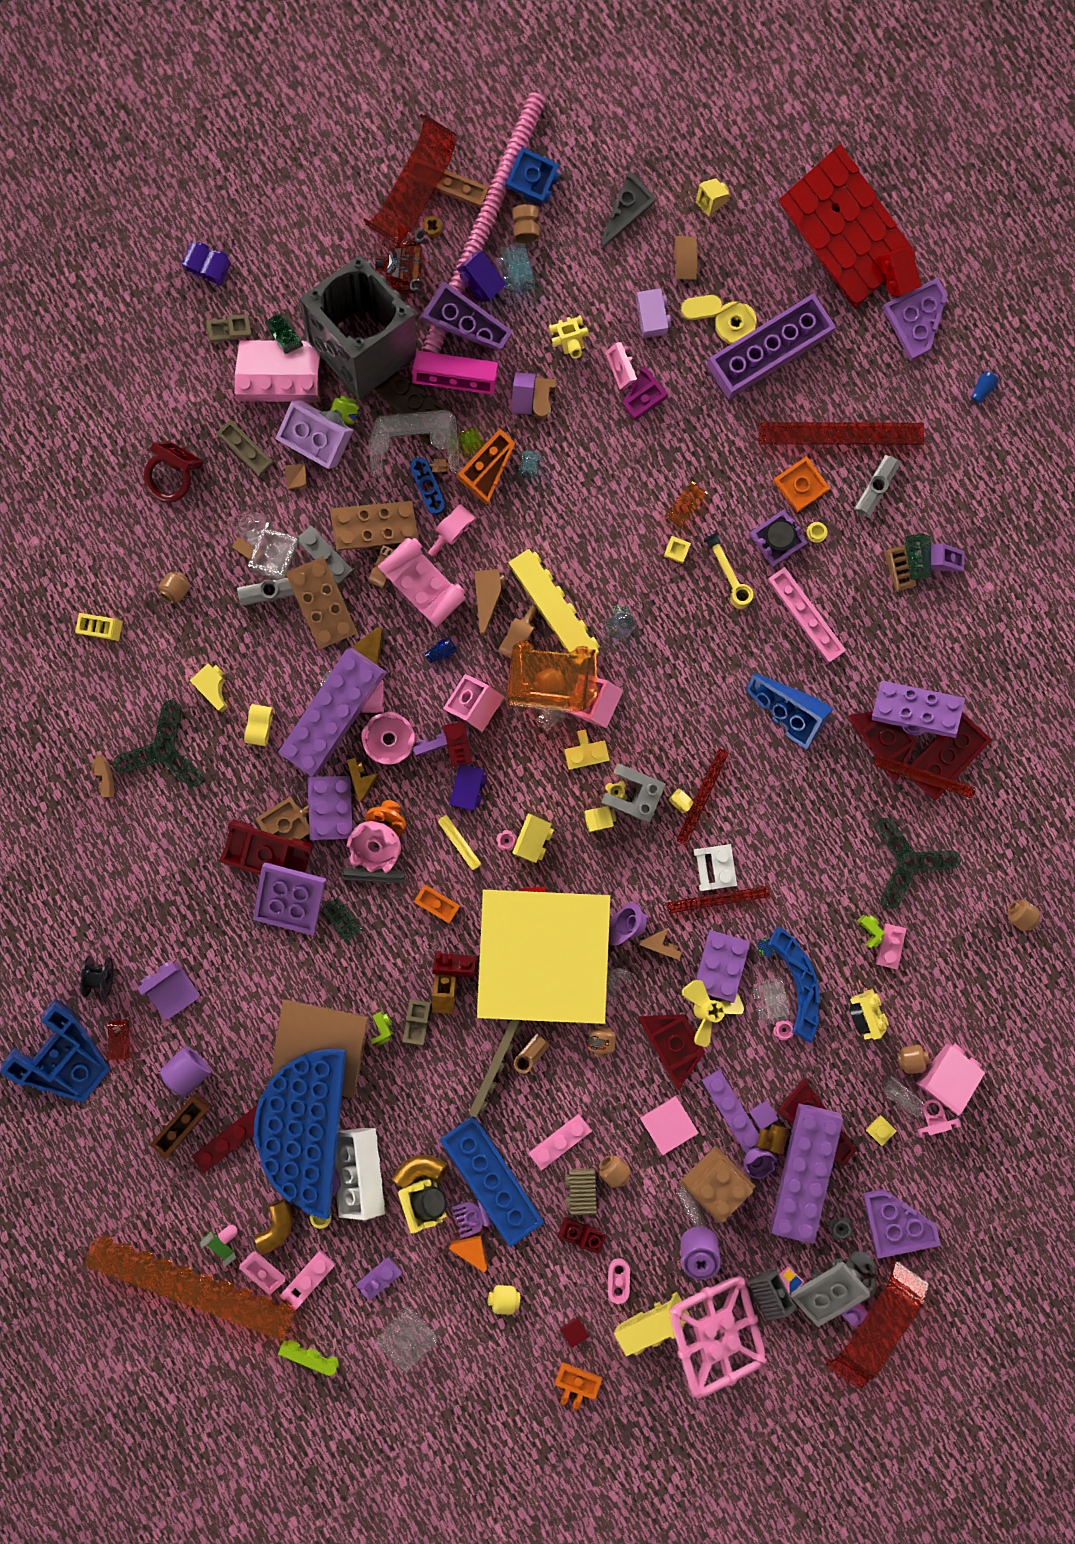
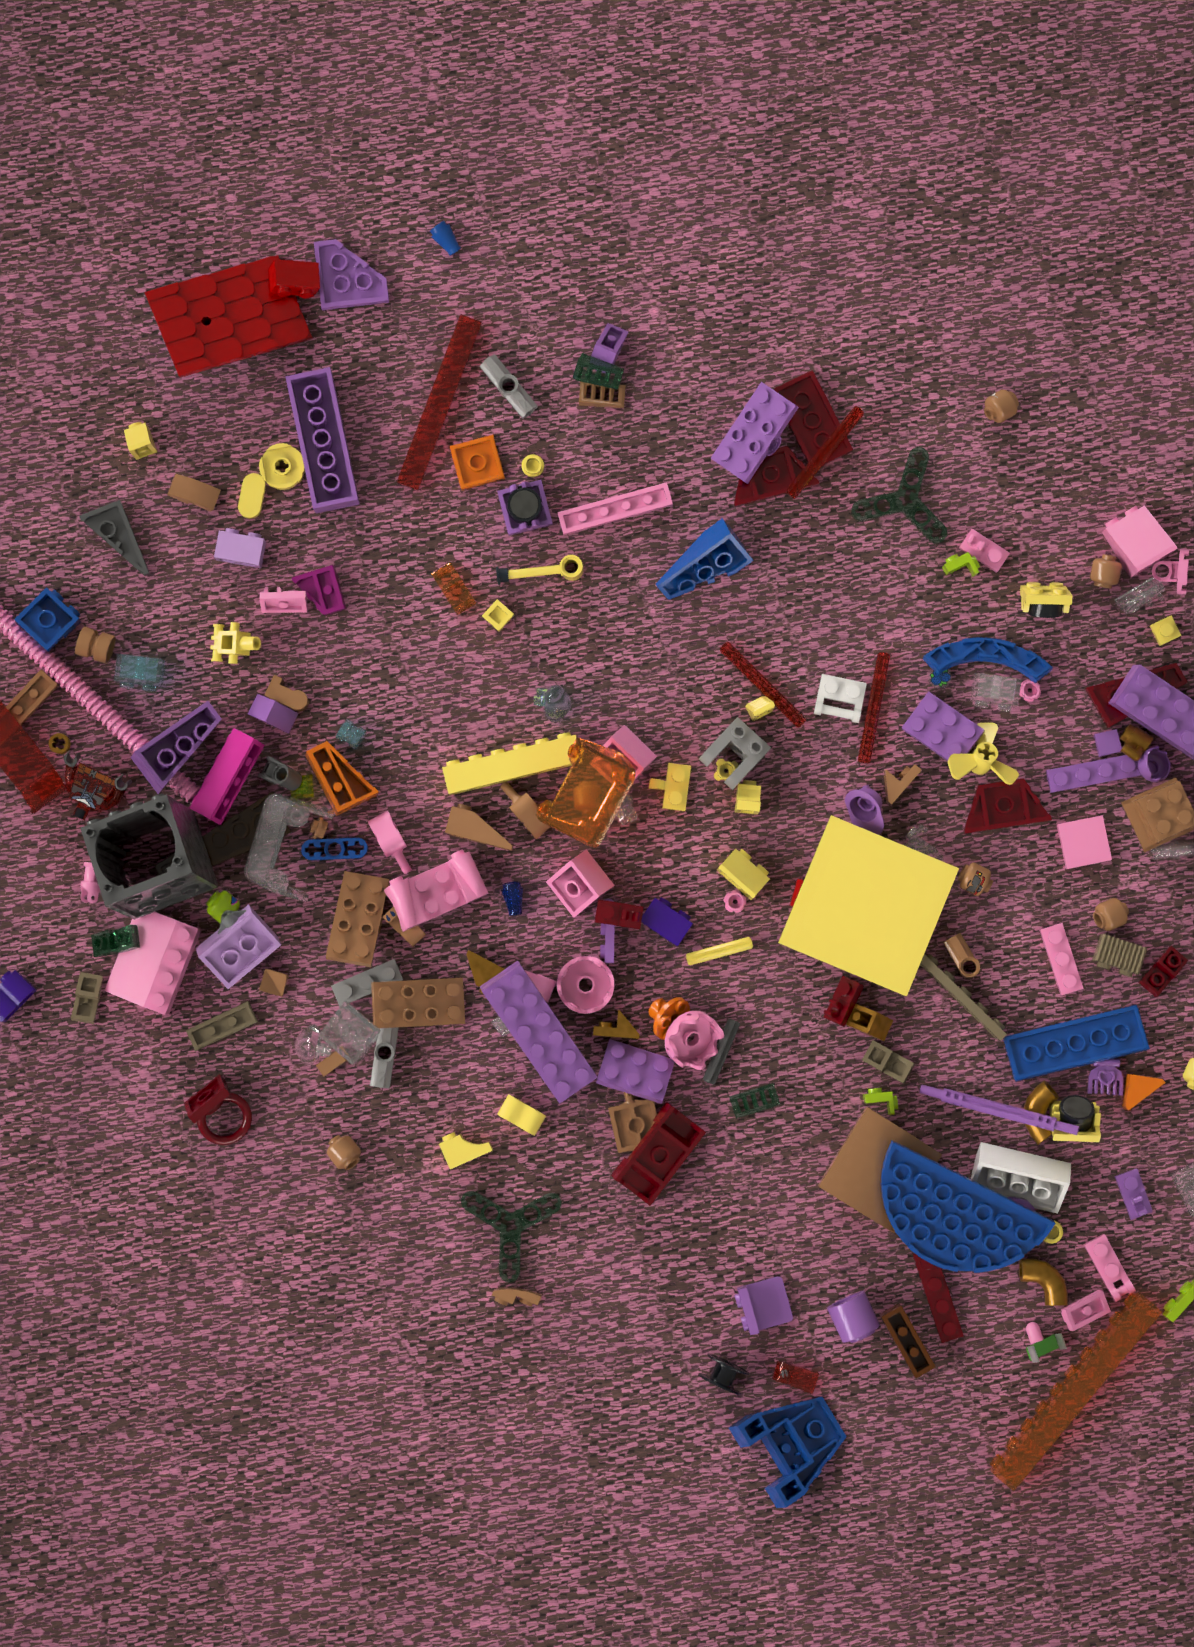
camera: 70 degrees left, 0 degrees up
(111, 630) = (363, 1230): light yellow slope -> none
(289, 898) = (715, 1146): medium lavender plate -> none
(408, 1136) = (999, 1109): none -> medium lavender axle
(437, 903) = (774, 996): orange plate -> none
(473, 417) = (280, 774): none -> dark grey piece
(481, 276) = (136, 712): dark purple brick -> none

